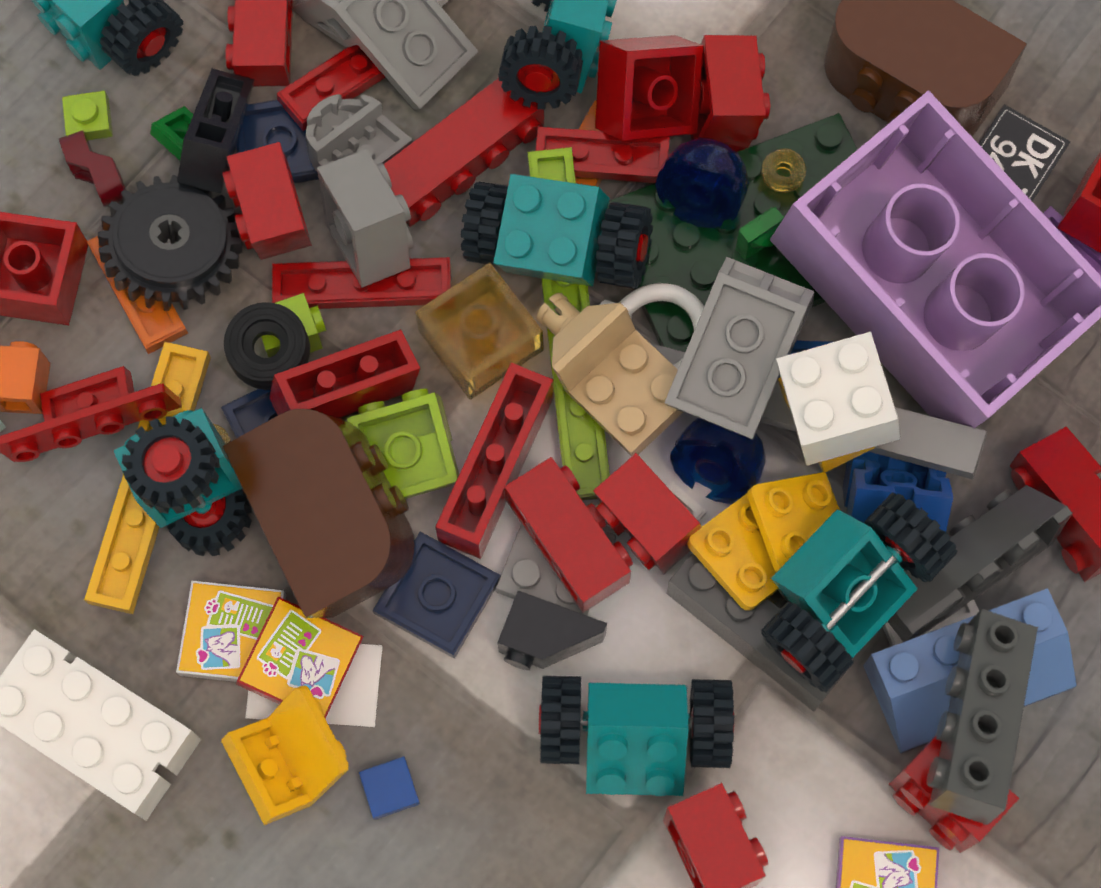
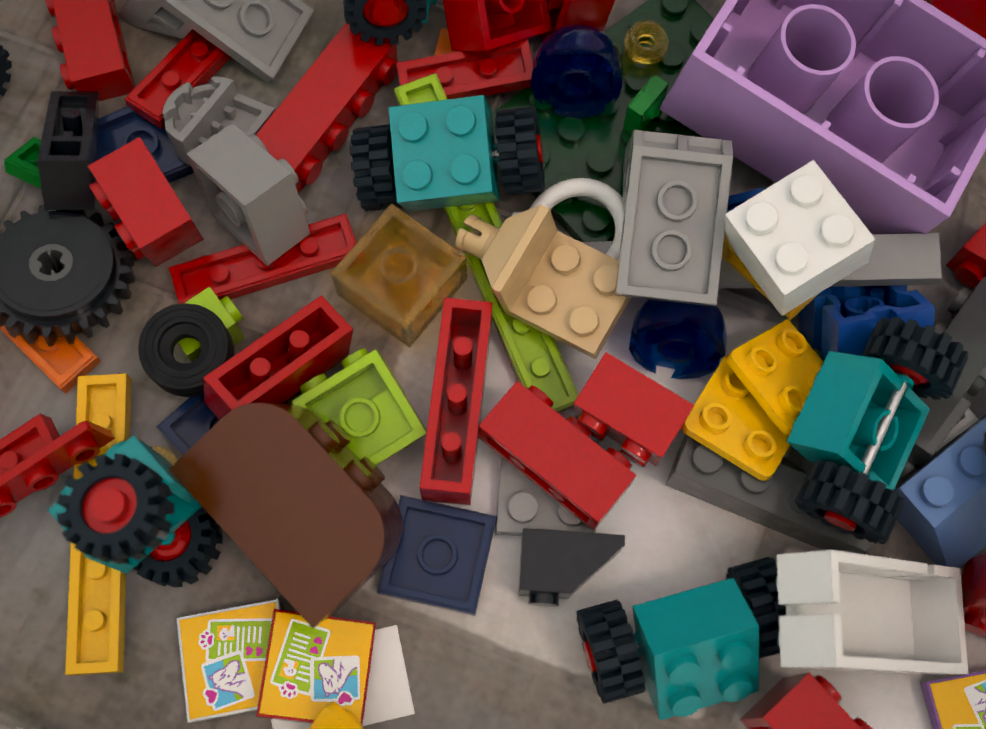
camera: 20 degrees left, 0 degrees up
(799, 753) = (870, 614): none -> white piece

